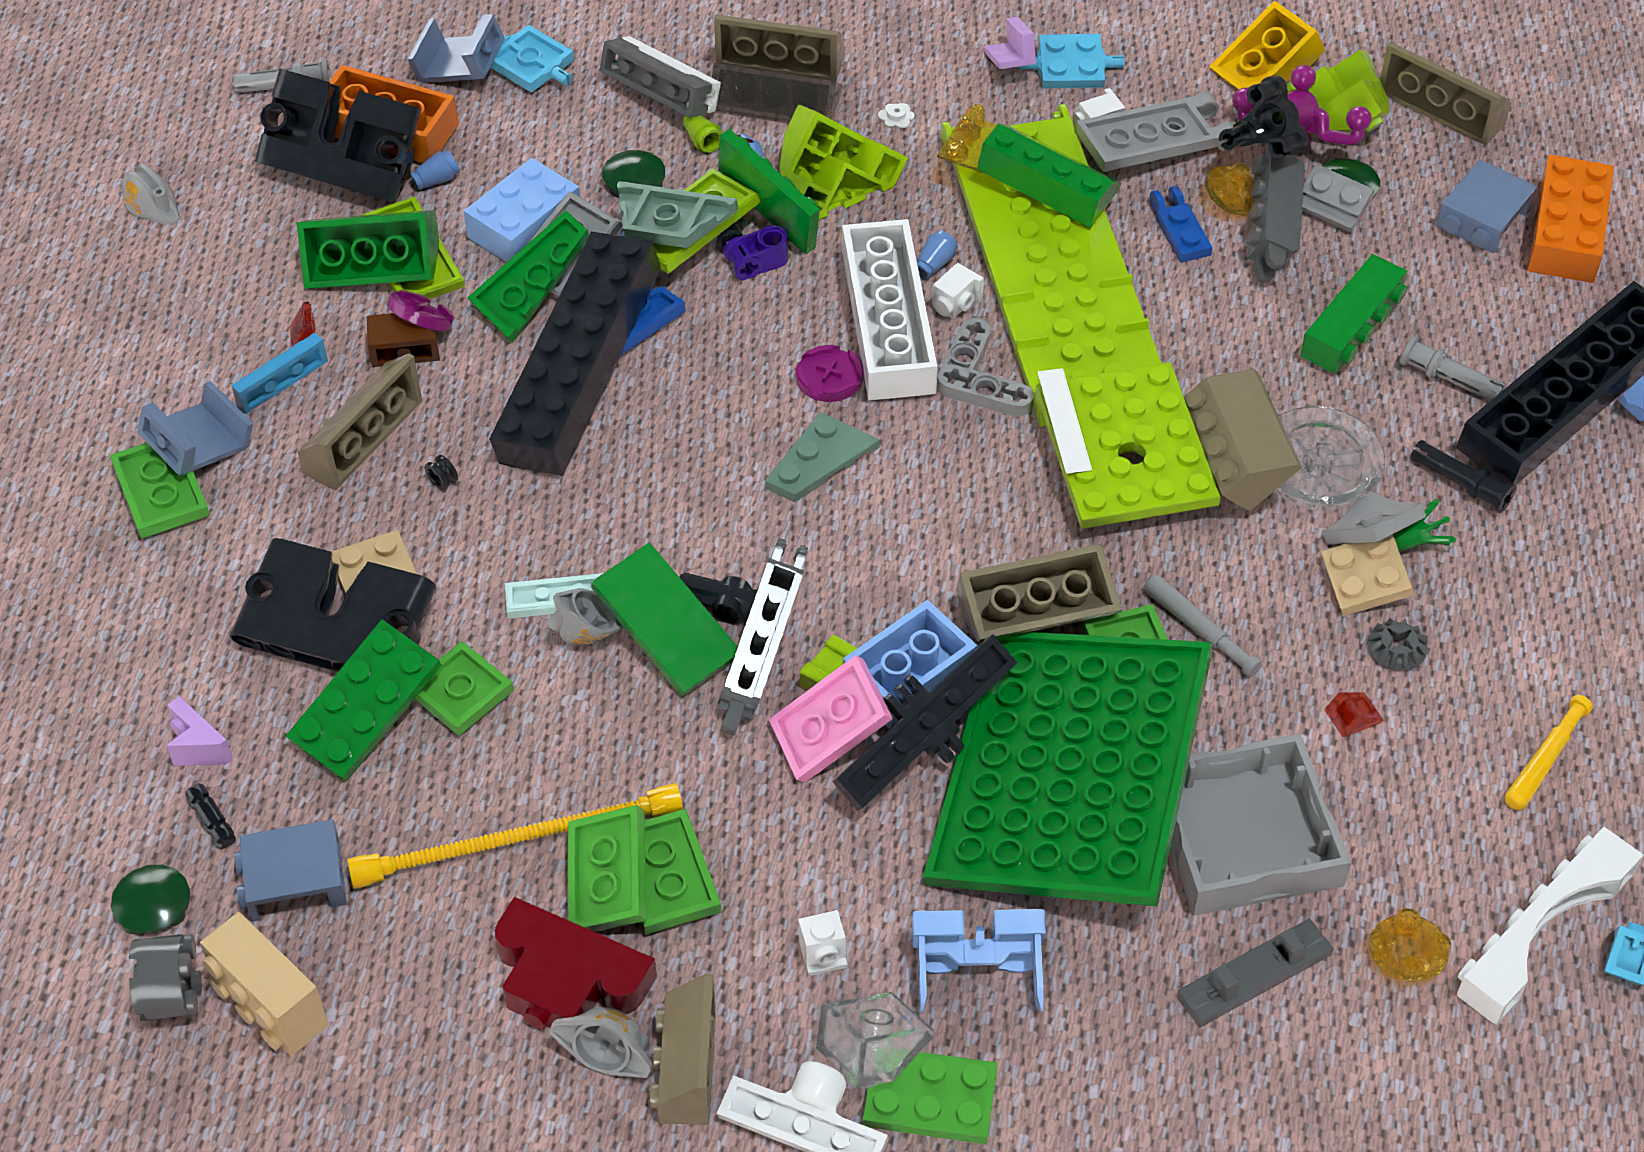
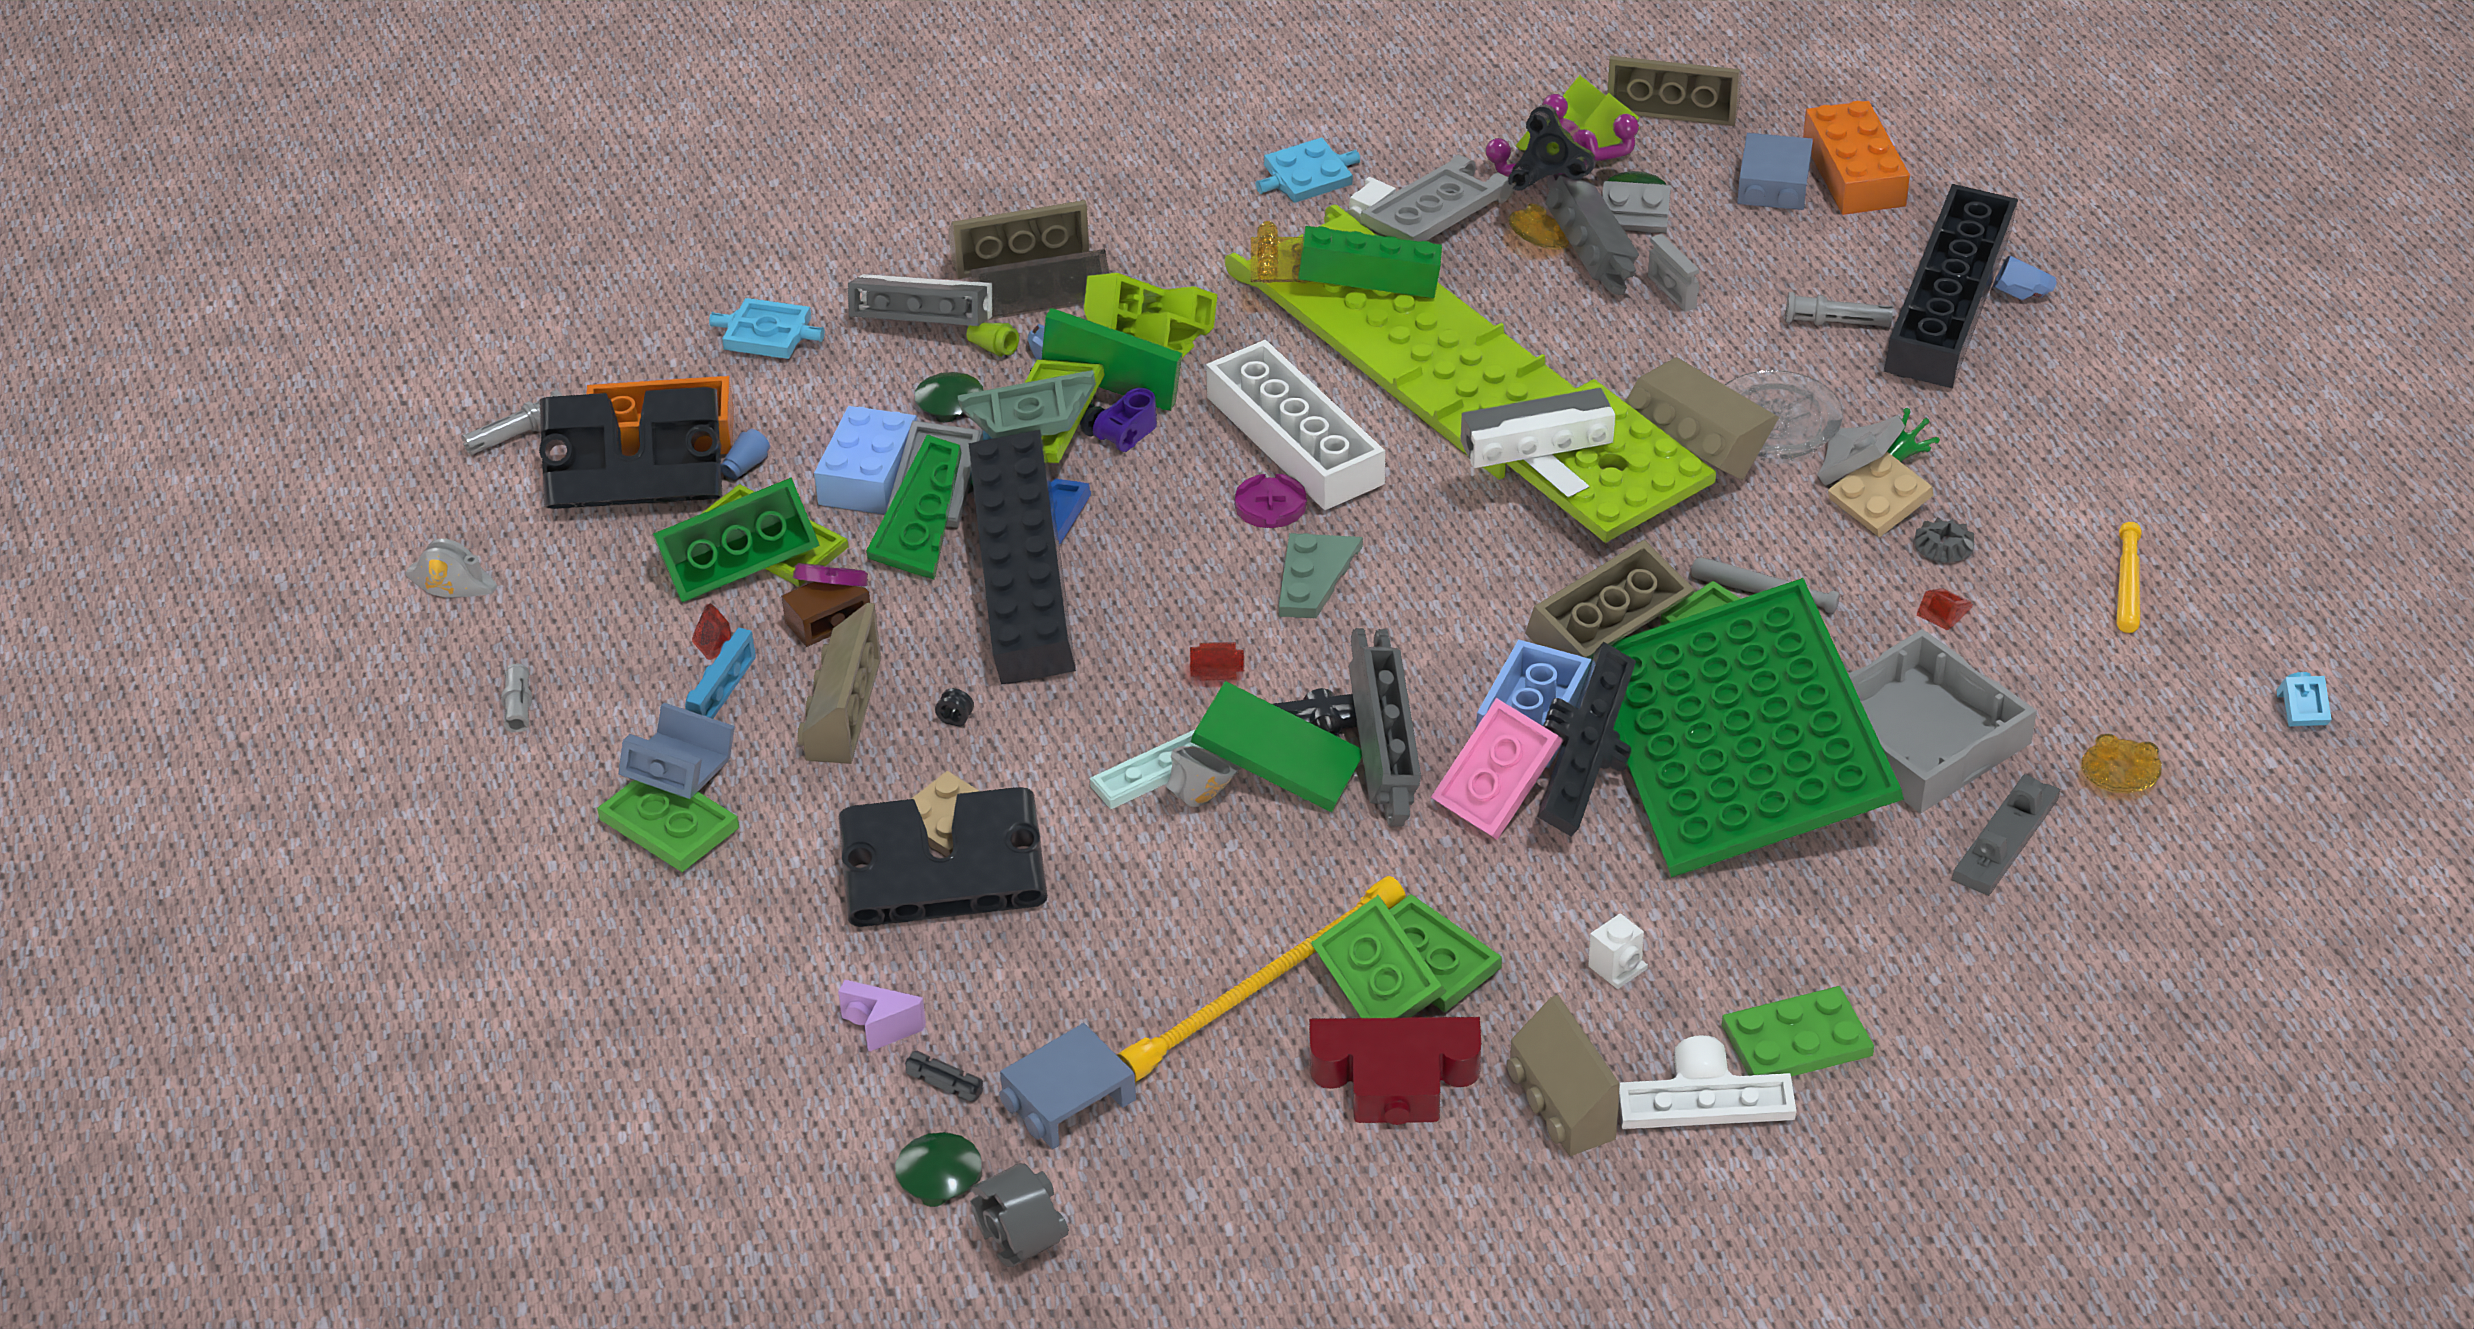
camera: 25 degrees left, 10 degrees down
(132, 315) = (516, 698): none -> light grey pin
(263, 985) = (1123, 1180): tan brick -> none
(363, 700) = (1032, 918): green piece -> none
(456, 57) = (691, 348): sand blue panel -> none
(463, 689) = (1114, 878): bright green plate -> none
(605, 1042) = (1480, 1106): light grey hat -> none
(677, 513) = (1216, 661): none -> clear red brick
(825, 662) = (1454, 732): lime piece -> none
(871, 1037) = (1722, 1002): clear slope -> none
(896, 115) = (1170, 267): white plant -> none
(936, 253) = (1304, 358): medium blue cone -> none
(957, 291) = (1348, 387): white brick -> none
(967, 373) = (1402, 458): light grey beam -> none
(1013, 946) = (1787, 885): light blue piece -> none
(1018, 49) = (1252, 169): lavender panel -> none
(1074, 396) = (1537, 427): none -> white piece
(1180, 226) = (1508, 273): blue hinge -> none
(1268, 47) = (1491, 103): yellow slope -> none
(1320, 276) = (1673, 273): none -> light grey plate
(1354, 314) = (1725, 292): green brick -> none
(1477, 482) = (1923, 391): black pin -> none
(1501, 974) = (2214, 749): white arch -> none

